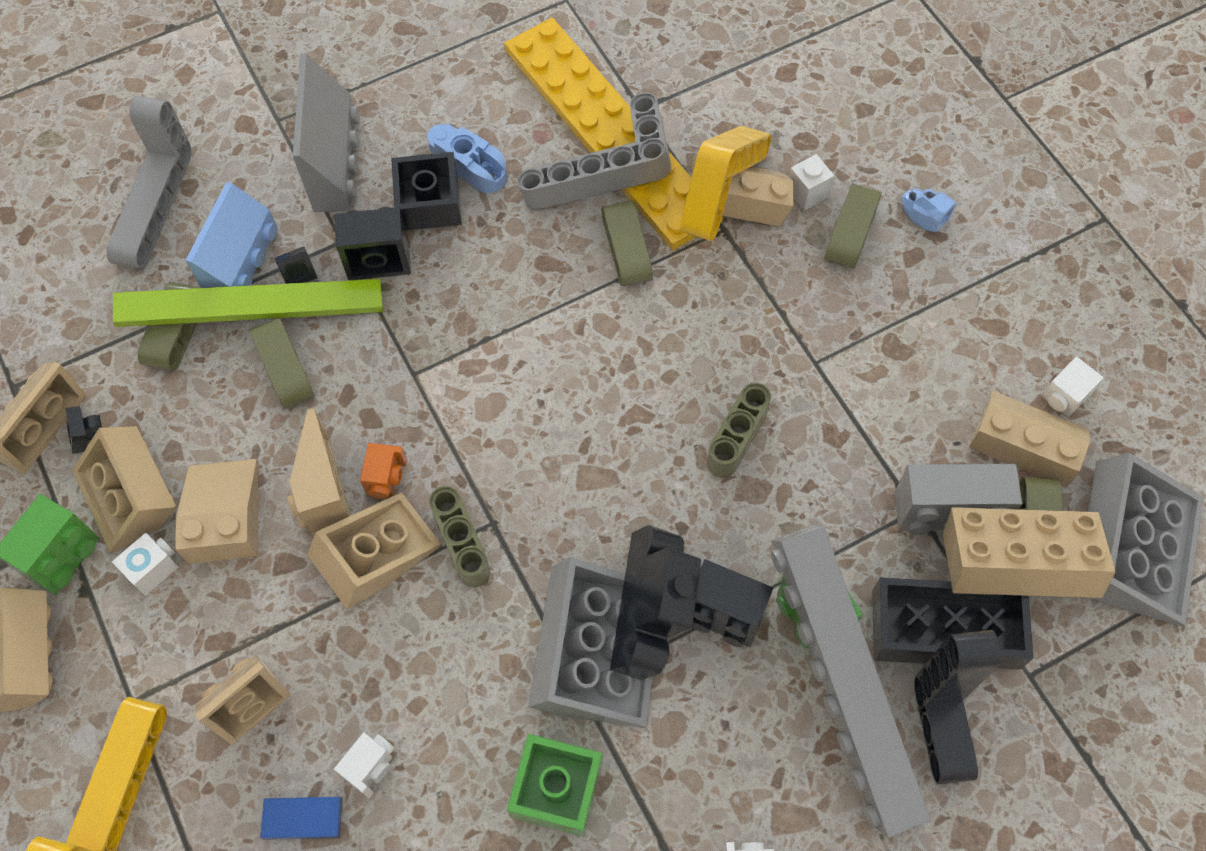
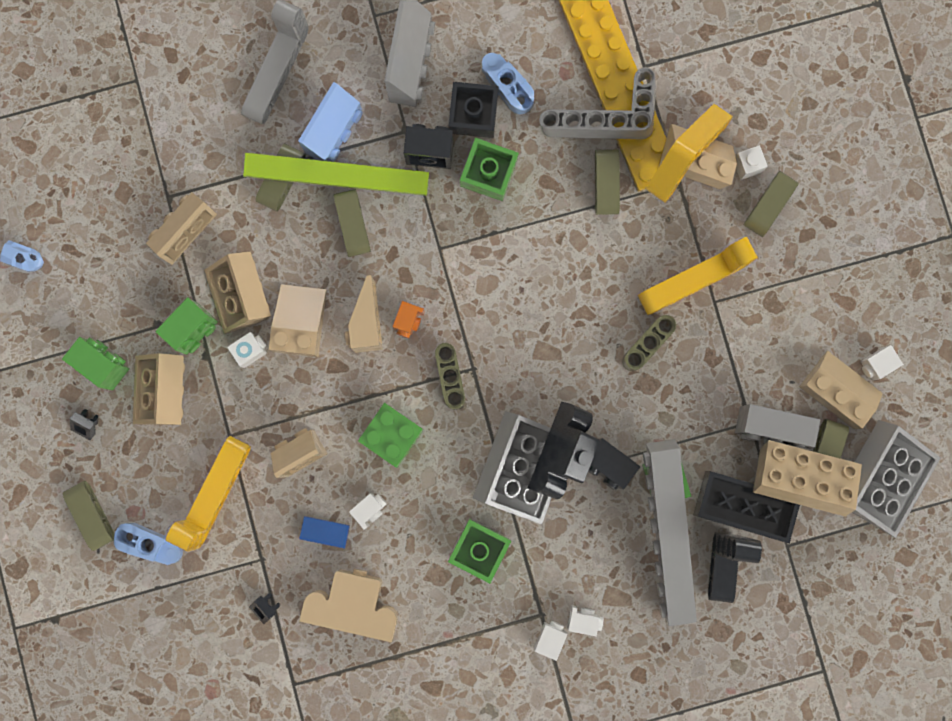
camera: 15 degrees right, 20 degrees up
(80, 428) = (213, 243): black tile -> none
(296, 266) = (371, 150): black tile -> none
(371, 548) = (393, 372): tan slope -> none
(383, 639) = (390, 435): none -> bright green brick
(461, 256) = (489, 169): none -> bright green brick
(766, 345) = (729, 261): none -> yellow beam
(928, 208) = (828, 200): light blue rock -> none

